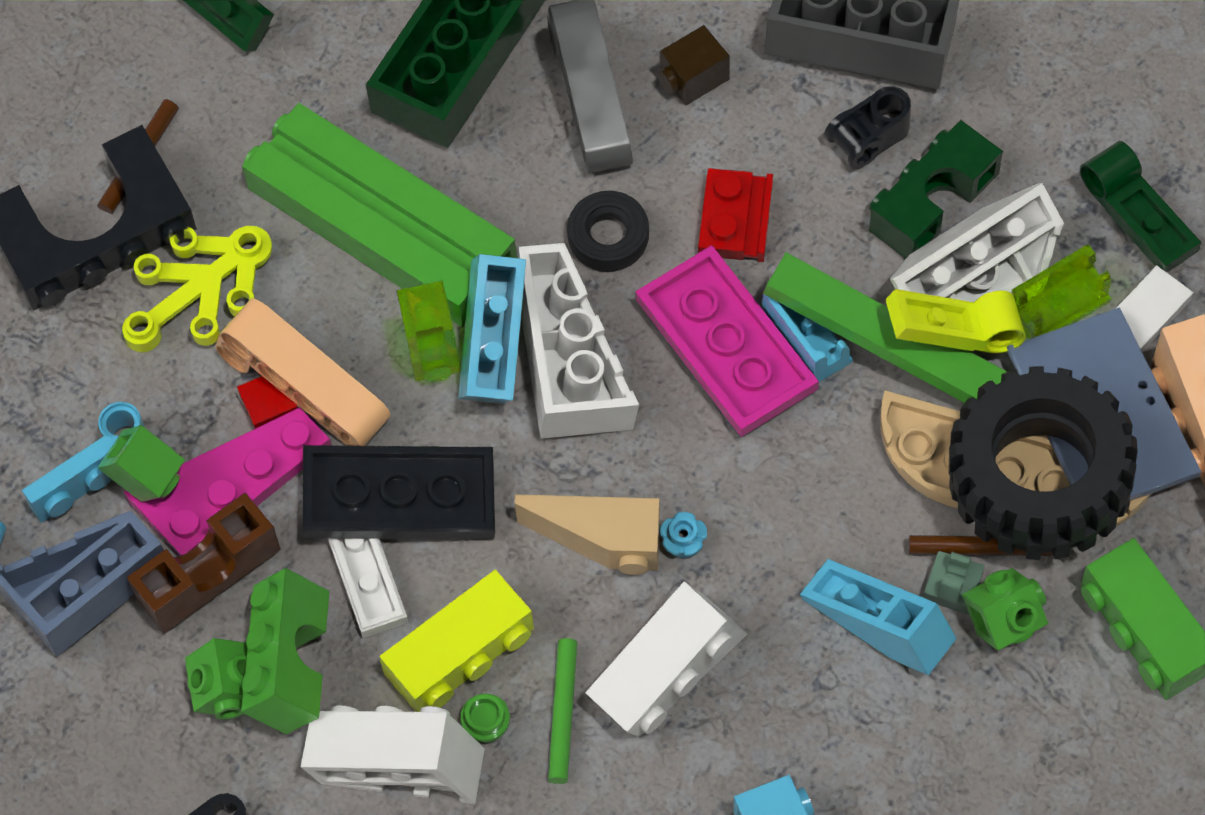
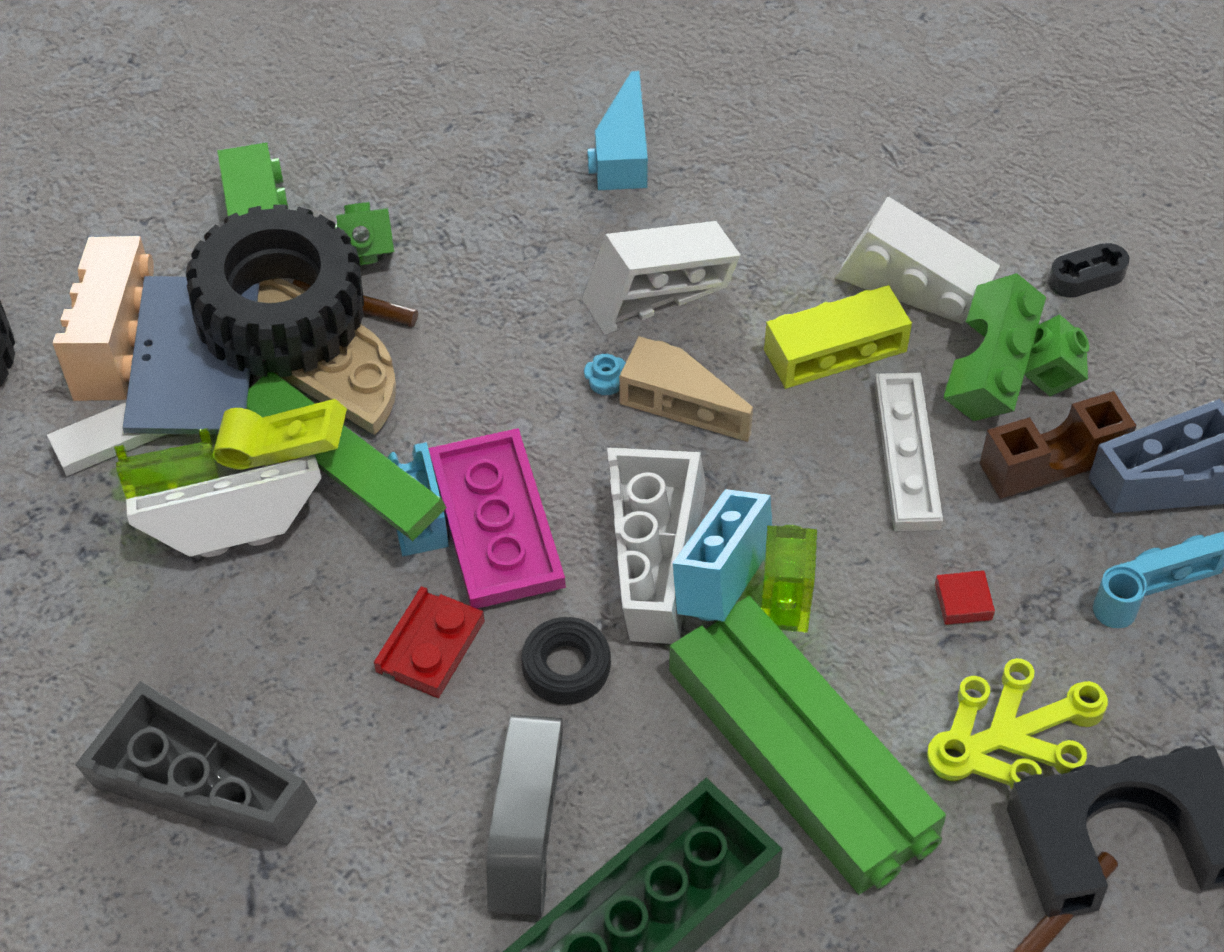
camera: 165 degrees left, 10 degrees down
(142, 464) = (1108, 528): bright green brick -> none
(250, 464) = (1021, 532): dark pink wing -> none
(301, 372) = (938, 590): light nougat beam -> none
(398, 492) = (858, 469): black tile -> none
(485, 717) = (828, 284): bright green plate -> none
(562, 711) = (760, 280): bright green bar -> none
(694, 65) = (402, 801): dark brown brick -> none
(863, 129) = (250, 674): black piece -> none
(882, 615) = (468, 262): medium azure slope -> none
(951, 578) = (393, 279): sand green tile -> none
(956, 163) = (193, 613): dark green arch -> none
(1137, 208) = (43, 517): dark green plate -> none

